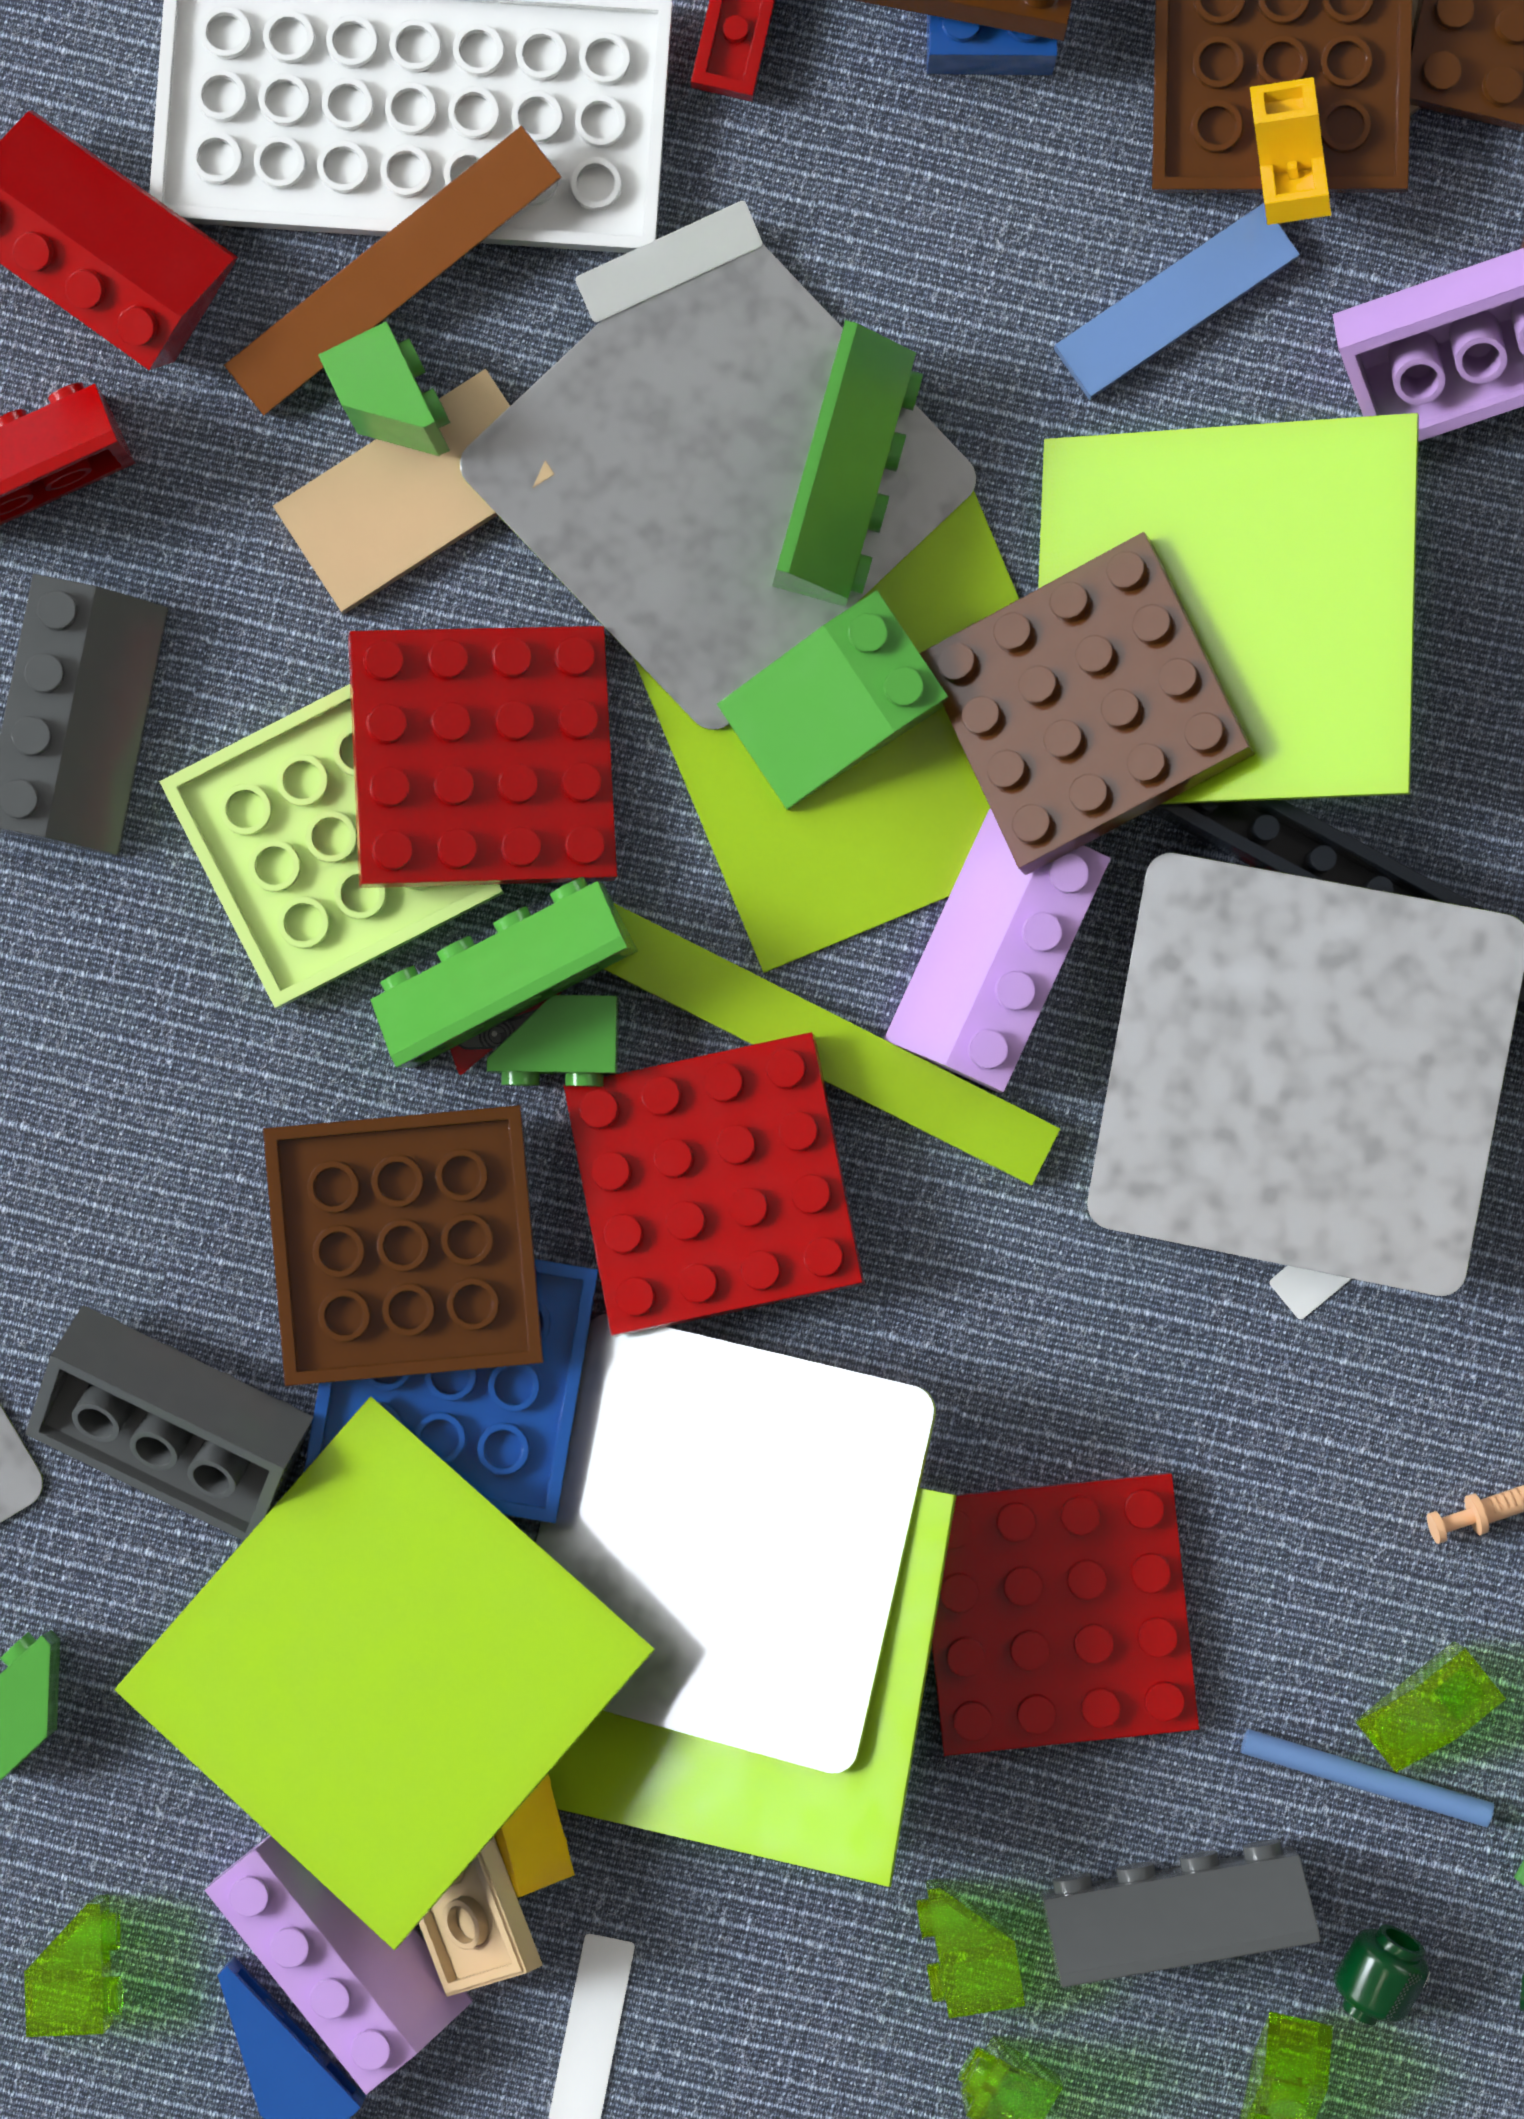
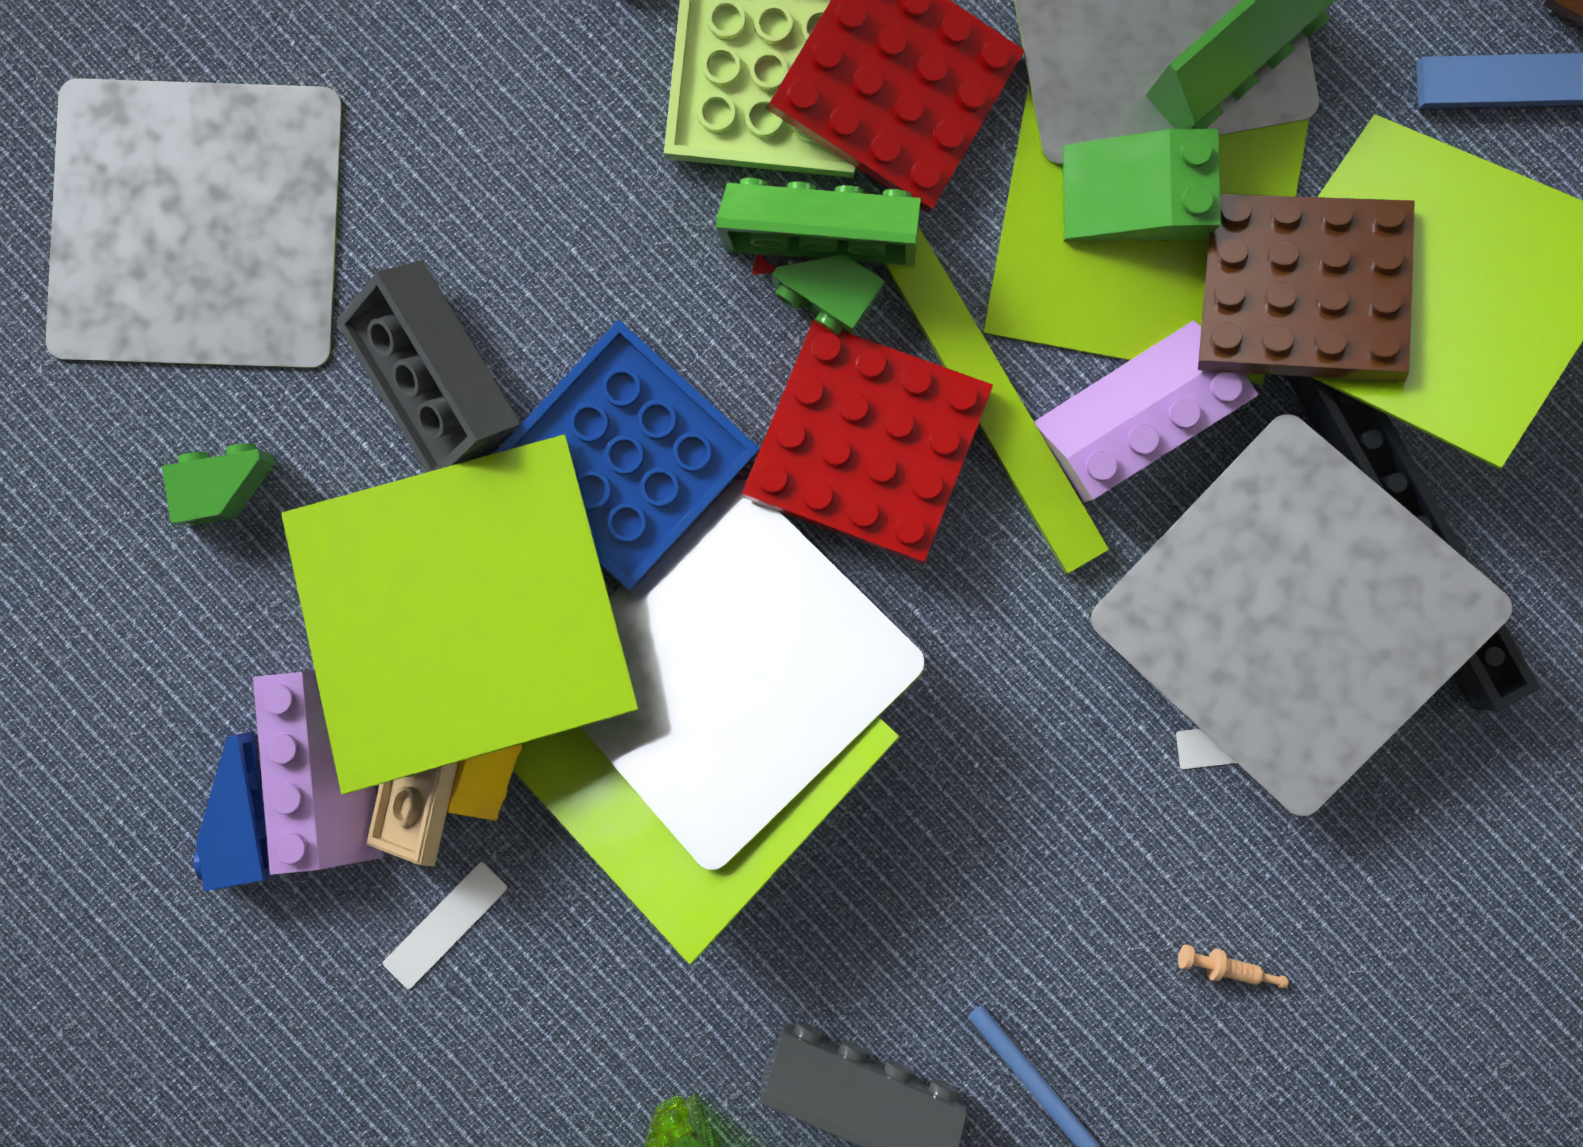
camera: 30 degrees right, 0 degrees up
(72, 1979) = (139, 679): clear neon green slope -> none
(403, 1245) = (646, 350): reddish brown plate -> none
(974, 1952) = (717, 1038): clear neon green slope -> none
(1063, 1617) = (912, 860): red plate -> none
(1430, 1708) = (1112, 1071): clear neon green slope -> none

